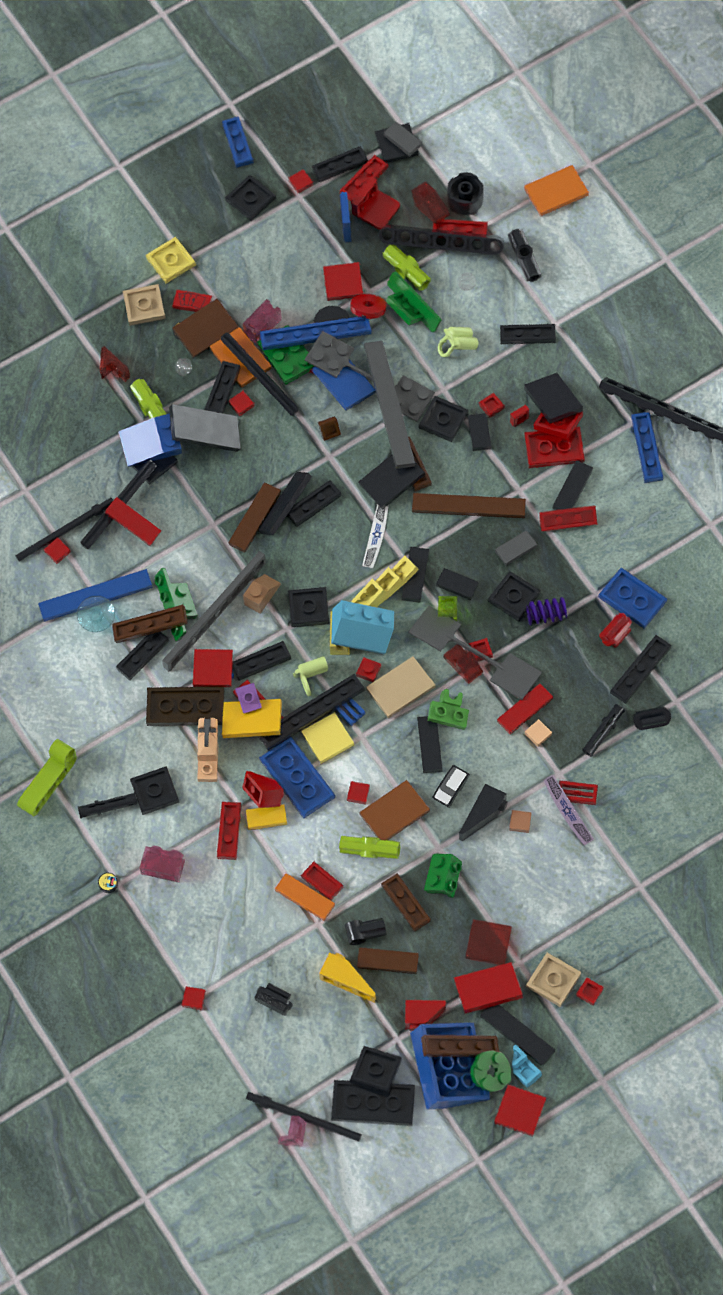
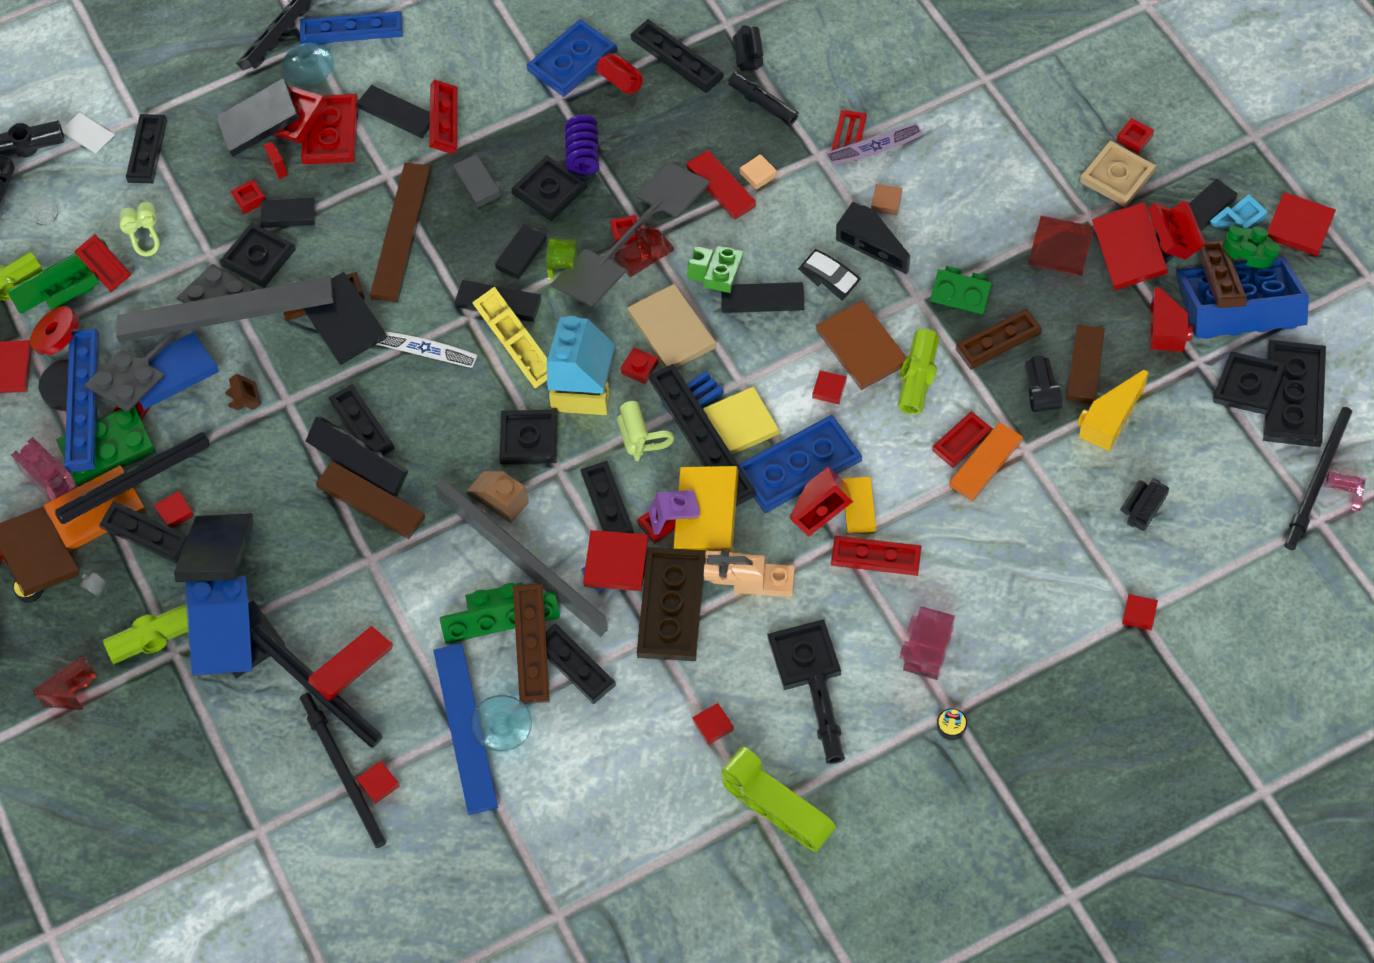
camera: 85 degrees left, 5 degrees down
(103, 739) = (713, 724): none -> red tile
(423, 324) = (102, 263): none -> red tile
(497, 1014) = (1176, 229): none -> red bracket
(540, 295) = (87, 132): none -> white sticker
(613, 431) = (308, 63): none -> clear light blue dish

